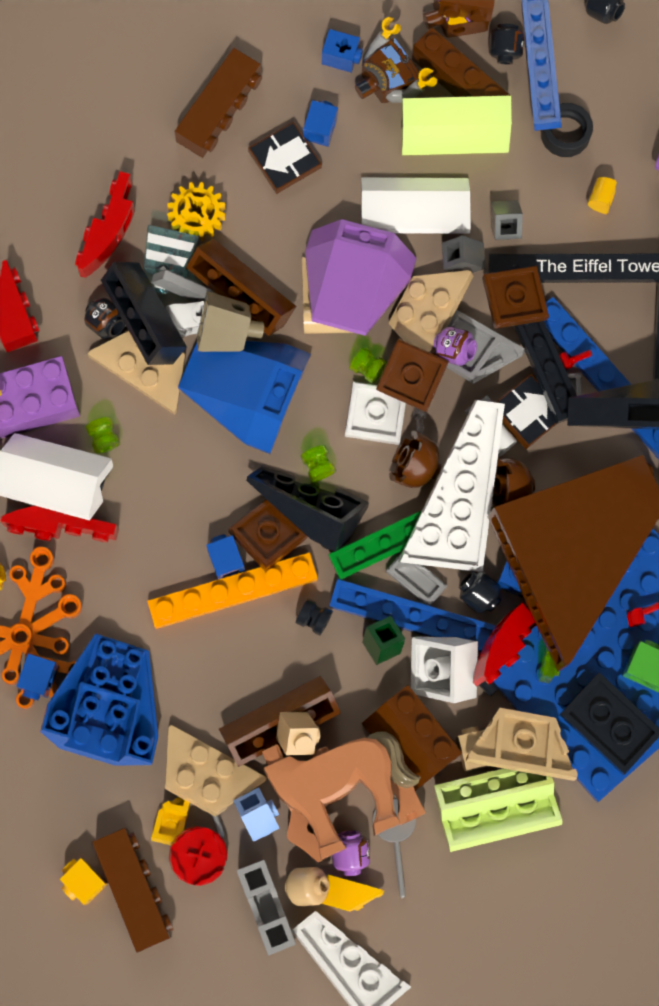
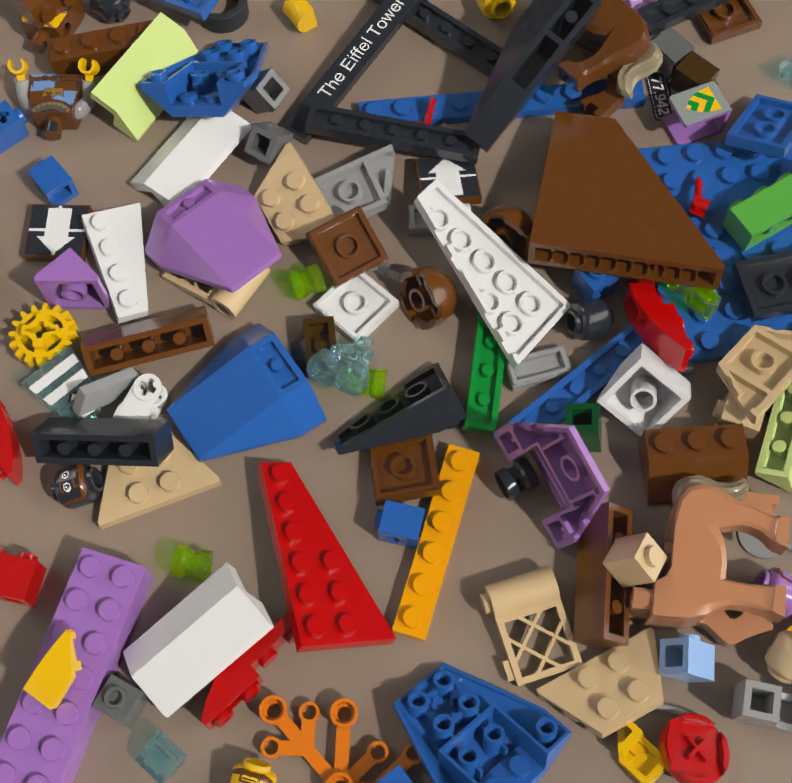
camera: 50 degrees left, 10 degrees down
(144, 531) = (319, 583): none -> red wing
(226, 325) = (175, 371): torso -> none
(227, 674) = (522, 597): none -> tan piece
(246, 201) = (72, 284): none -> medium lavender slope
(298, 213) = (119, 254): none -> white wing
(305, 447) = (348, 376): none -> clear light blue piece
(318, 410) = (315, 335): none -> dark brown slope
(333, 635) = (566, 469): none -> medium lavender wedge
(455, 345) = (347, 192): medium lavender head -> none
(484, 172) = (208, 81): none -> blue wedge
(515, 297) = (340, 120): reddish brown tile -> none

